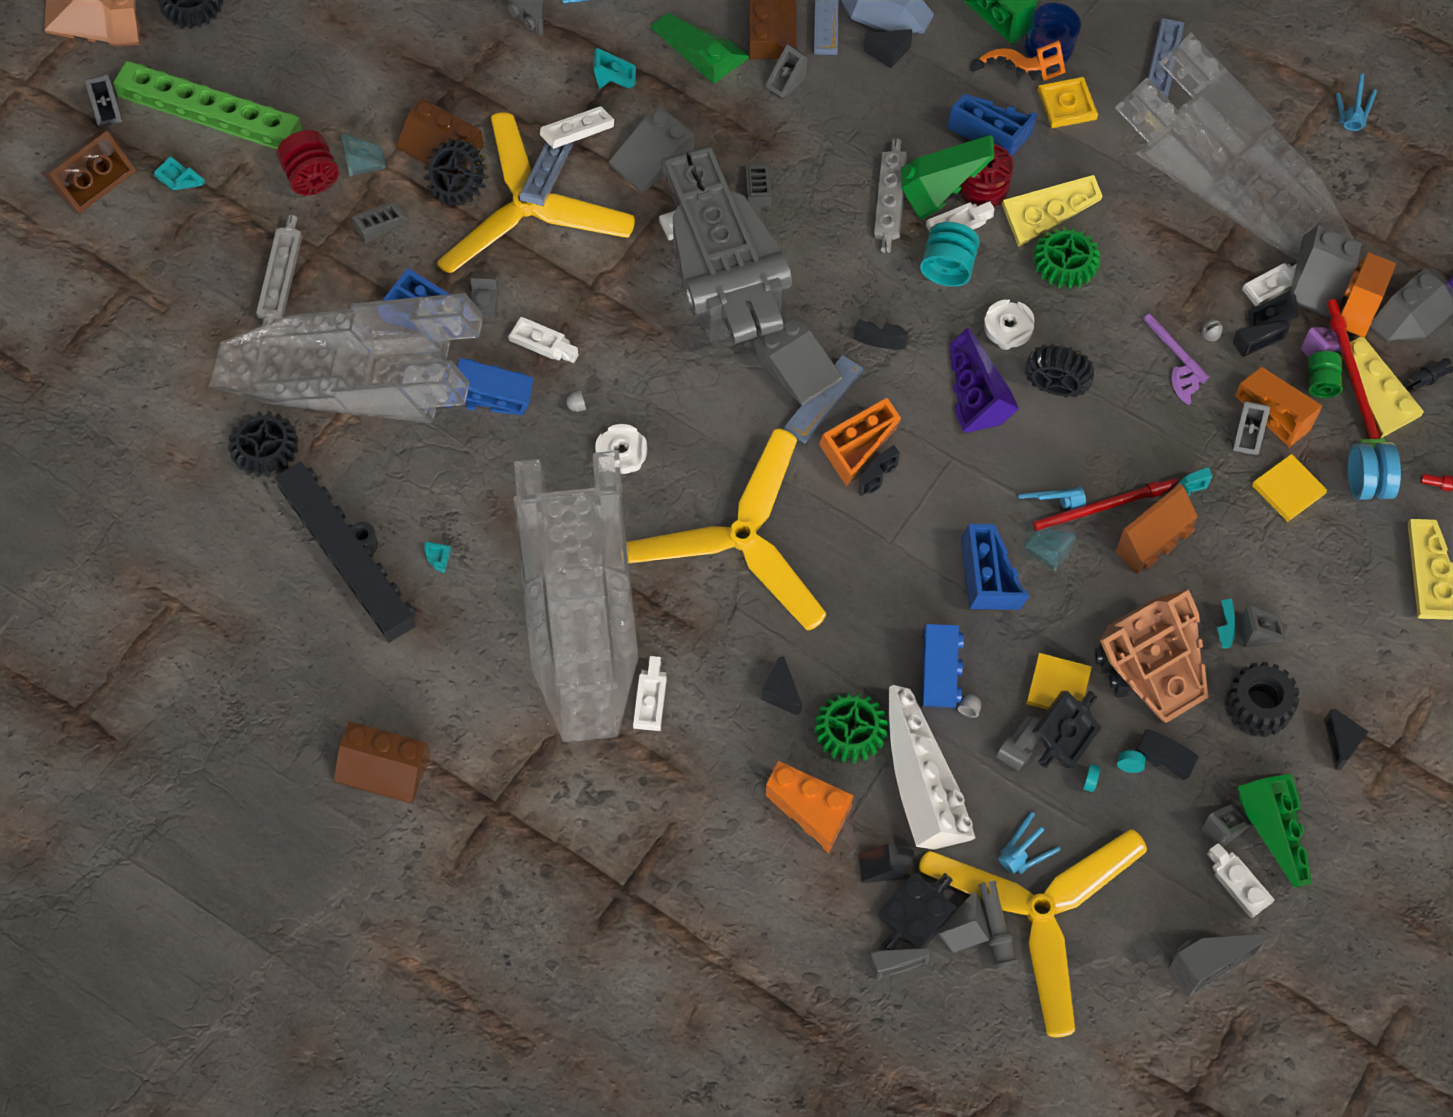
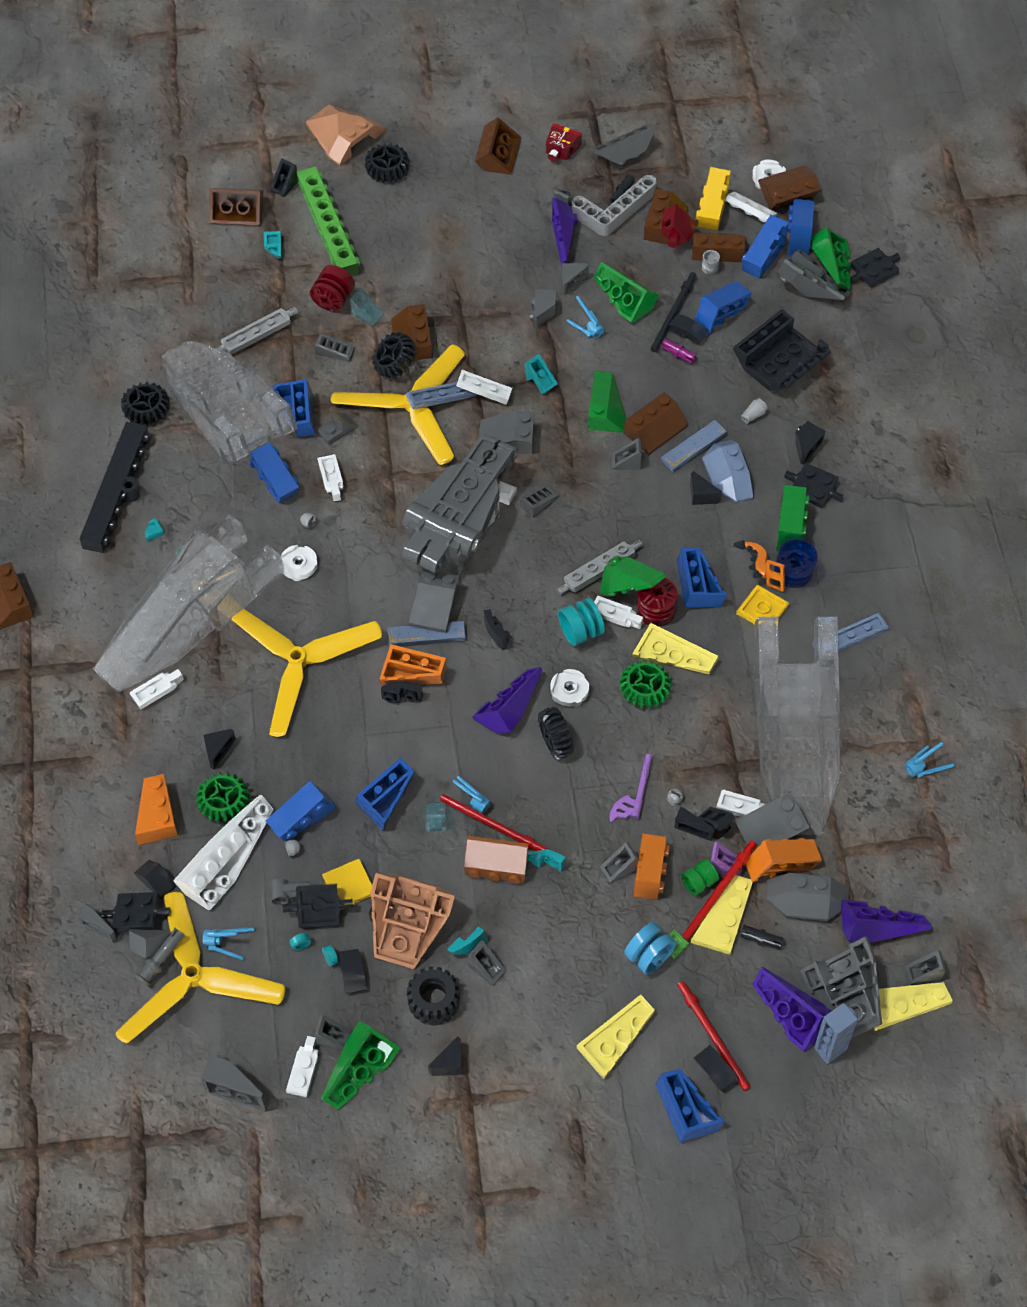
camera: 50 degrees right, 5 degrees down
(1289, 488) = (602, 914): yellow tile -> none

